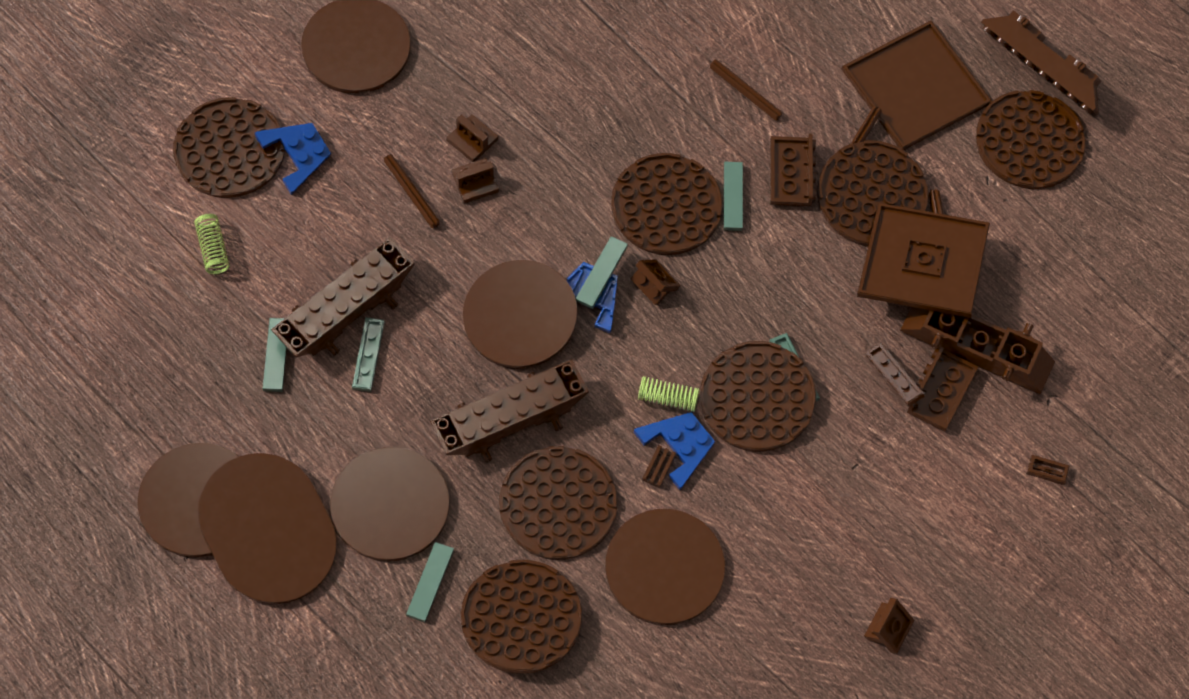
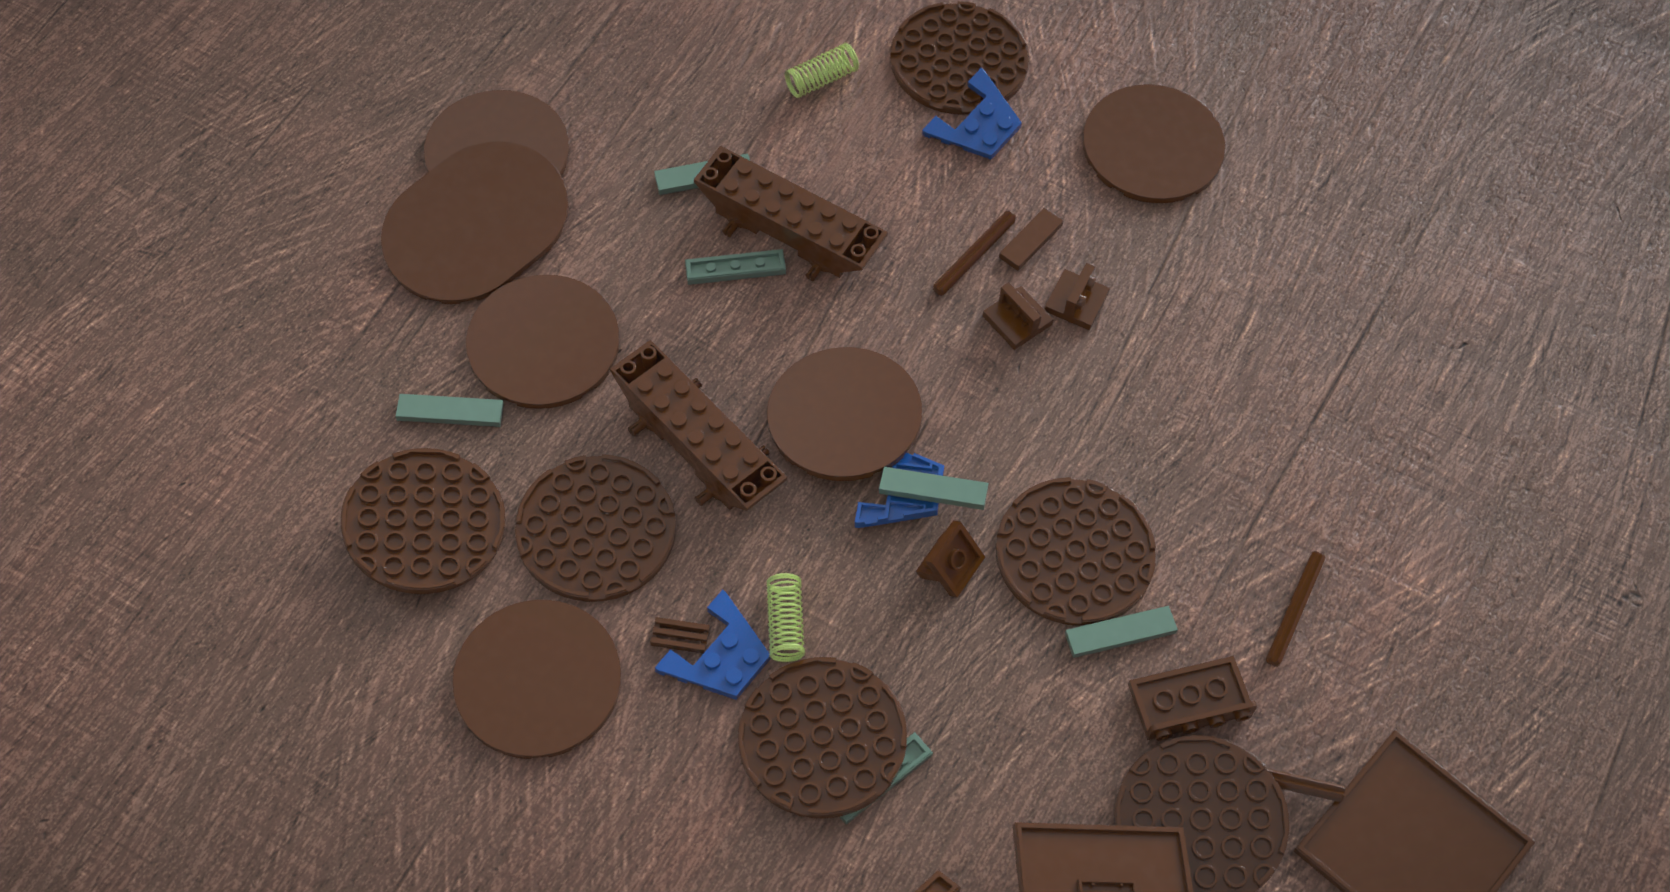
camera: 75 degrees right, 5 degrees down
(412, 151) = (1031, 239): none -> reddish brown tile

